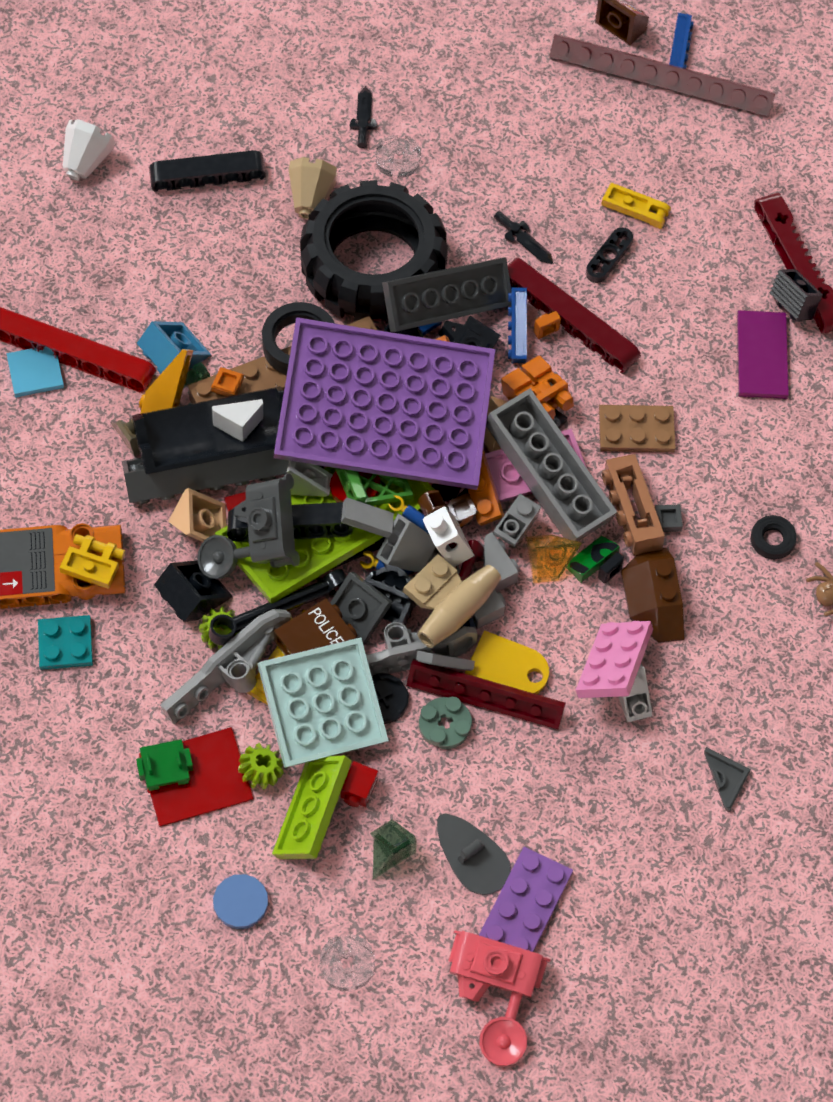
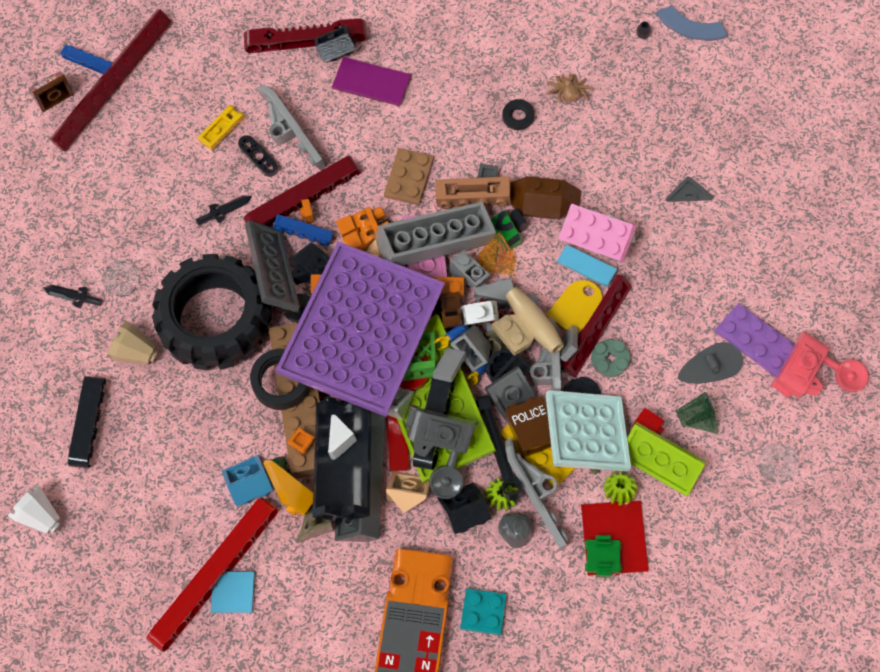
camera: 70 degrees left, 5 degrees up
(91, 567) = (433, 577): yellow plate -> none
(177, 654) = (515, 529): none -> dark grey hair
(240, 901) = (718, 525): medium blue tile -> none
(568, 664) = (586, 265): none -> medium azure piece
(657, 275) = (283, 122): none -> light grey piece

